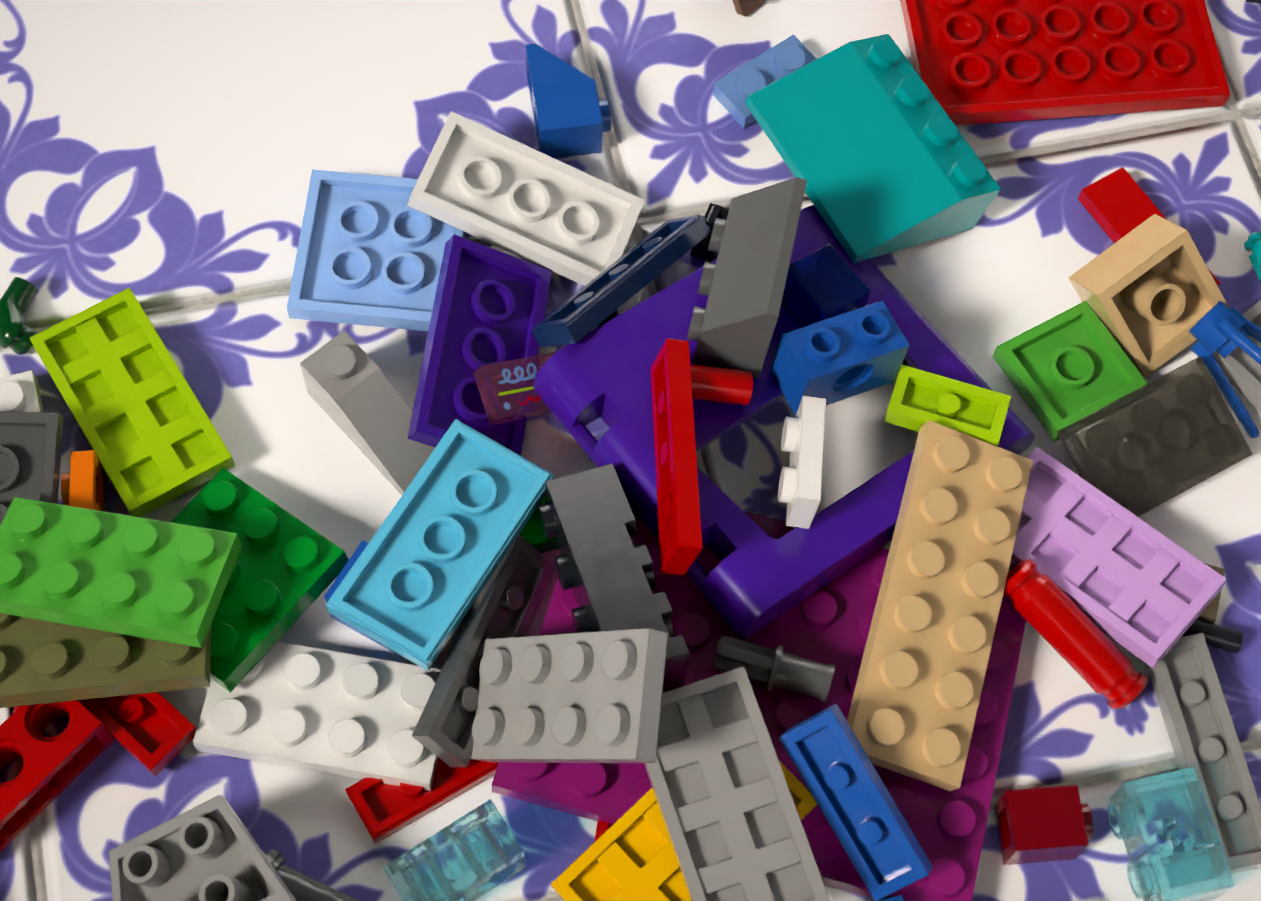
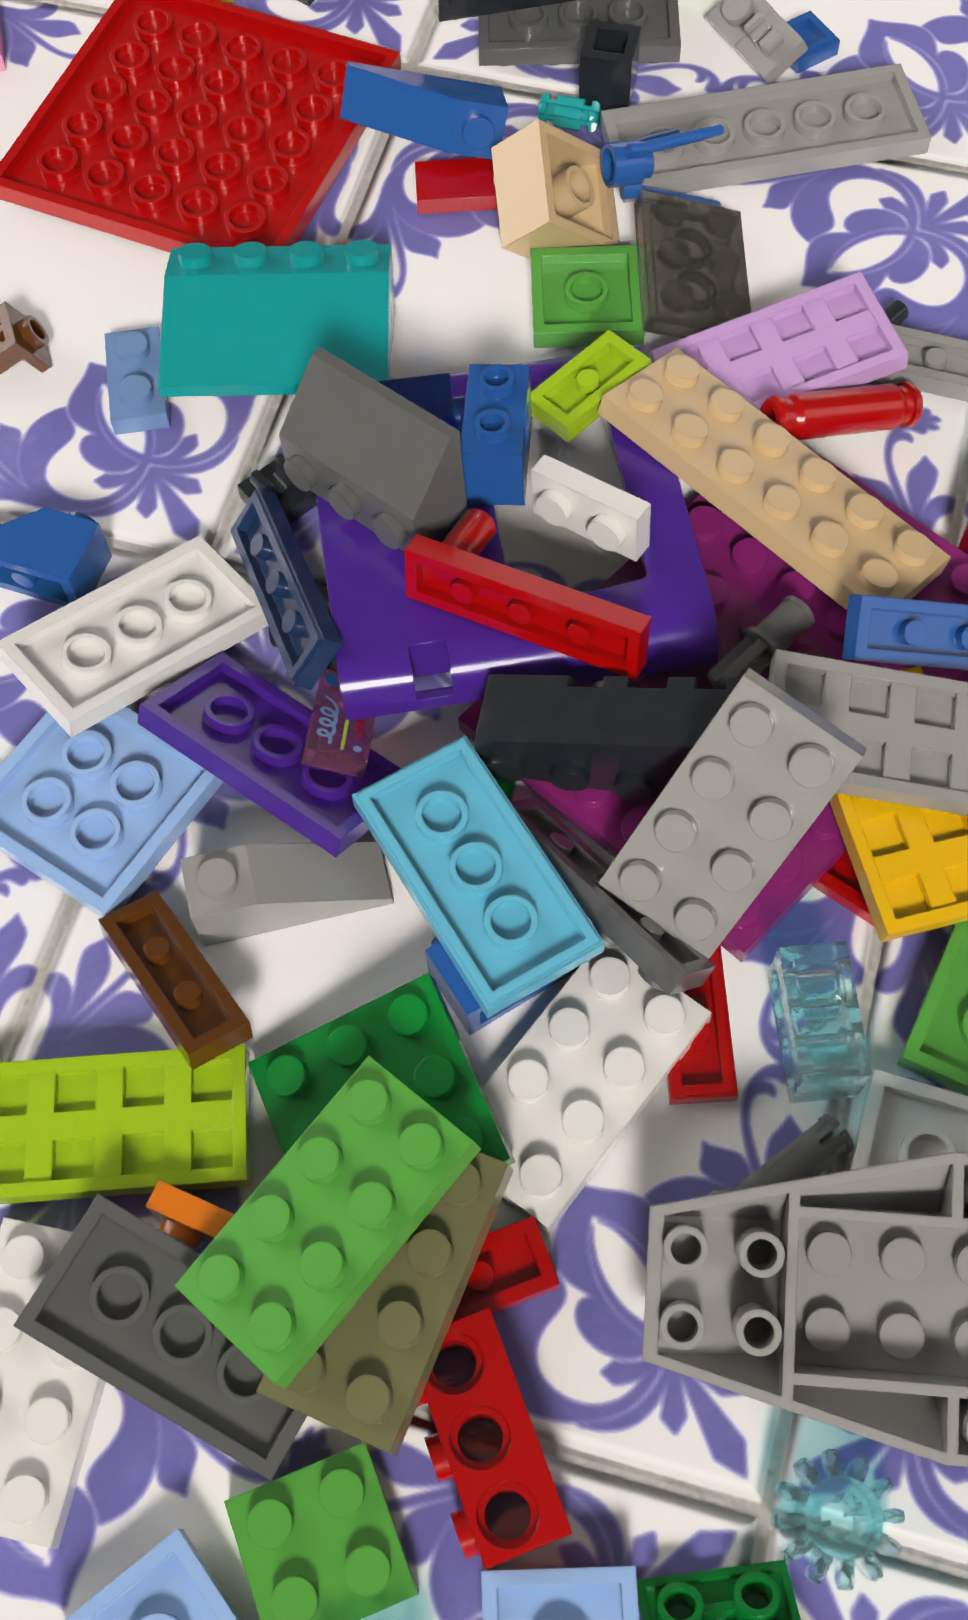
camera: 55 degrees left, 0 degrees up
(256, 382) = (175, 980): none -> reddish brown plate
(1171, 147) = (426, 108): none -> blue slope

